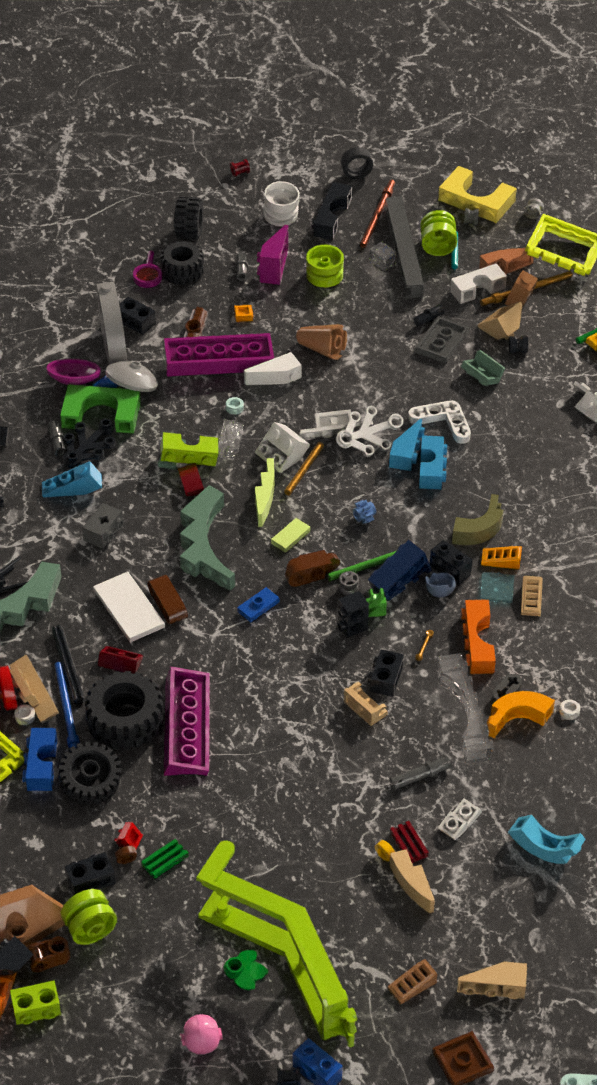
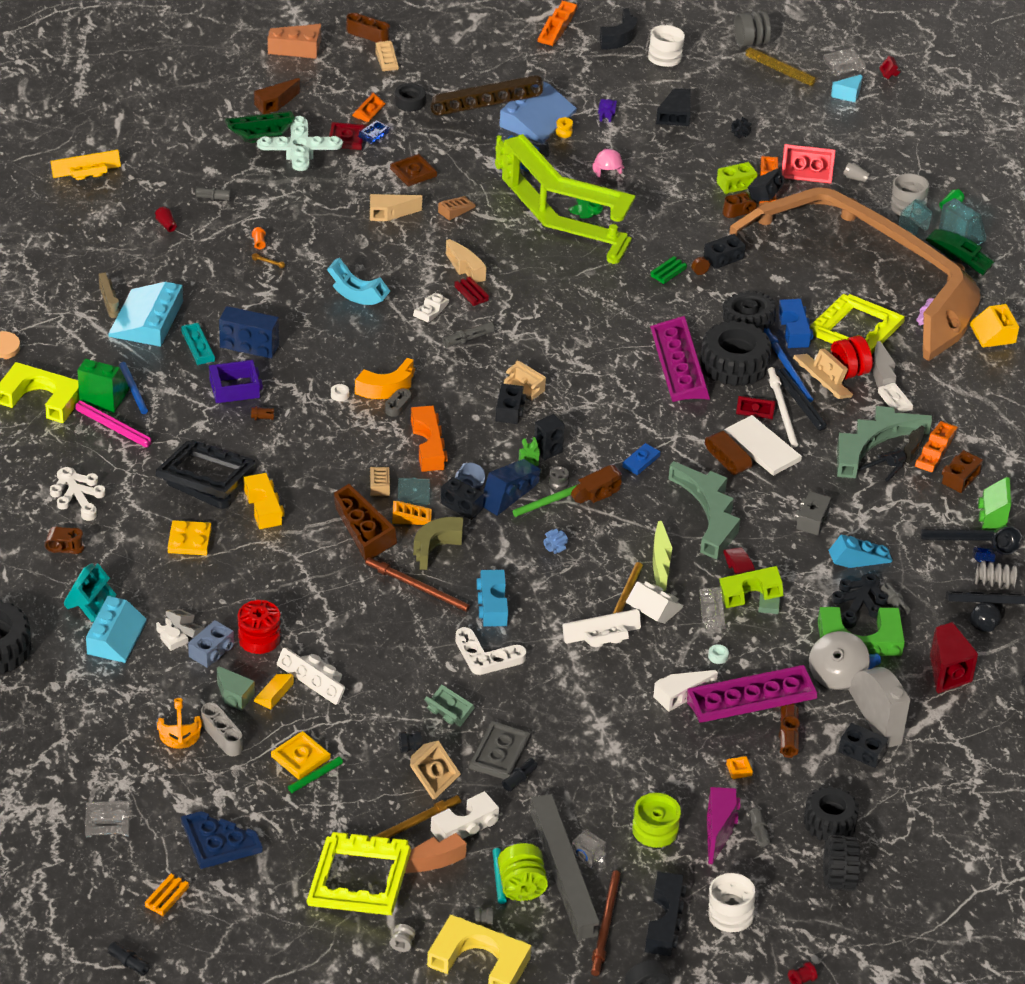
camera: 170 degrees right, 5 degrees down
(31, 366) = (951, 658): none -> dark red slope
(73, 371) = (910, 650): magenta dish -> none
(88, 916) = (714, 214): lime wheel -> none
(91, 651) = (775, 383): none -> white bar
(129, 835) = (702, 277): red tile -> none
(147, 274) = (871, 812): magenta piece -> none
(290, 535) = (625, 523): yellowish green tile -> none
(323, 339) = (639, 723): medium nougat cone -> none
(367, 432) = (566, 614): white plant -> none
(384, 849) = (490, 278): yellow tile -> none
(404, 448) = (523, 612): dark azure slope -> none
(429, 634) = (474, 447): pearl gold hinge -> none
(454, 676) = (446, 404): clear arch -> none
(522, 288) = (410, 791): medium nougat slope -> none
(530, 502) = (386, 569): none -> copper bar
(550, 538) = (365, 524): none -> reddish brown wedge

